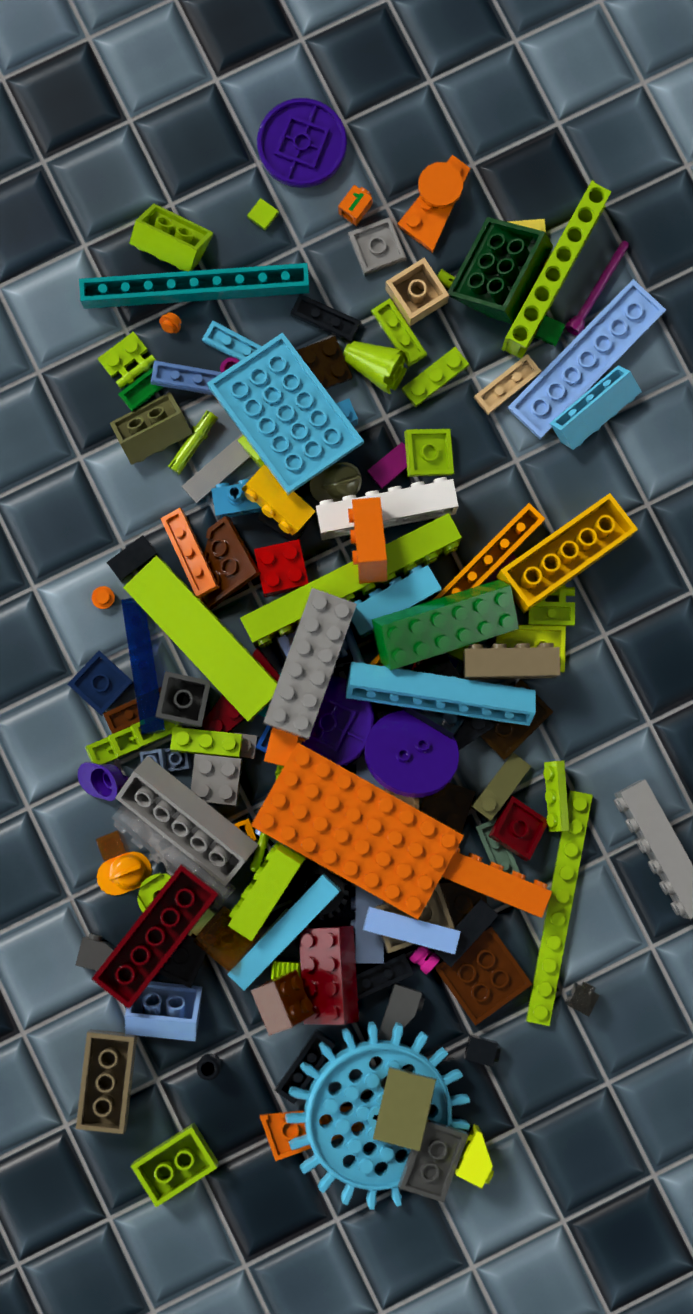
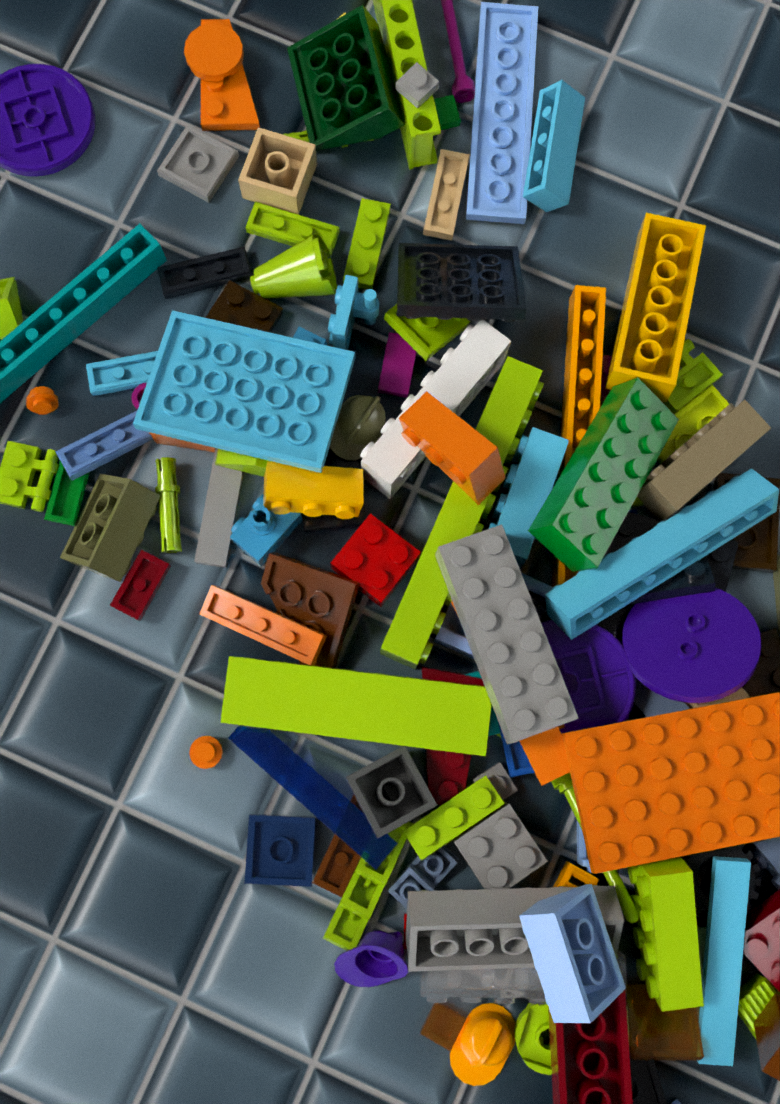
camera: 45 degrees left, 5 degrees down
(131, 558) = (202, 682): black tile -> none
(141, 475) = (140, 585): none -> dark red plate
(204, 852) = (573, 955): none -> light blue slope
(262, 214) = (52, 219): lime tile -> none
(355, 204) = (142, 137): orange brick -> none
(389, 408) = (351, 305): none -> medium azure plate
(463, 445) = (460, 282): none -> black plate
(534, 309) = (417, 85): none -> light grey plate

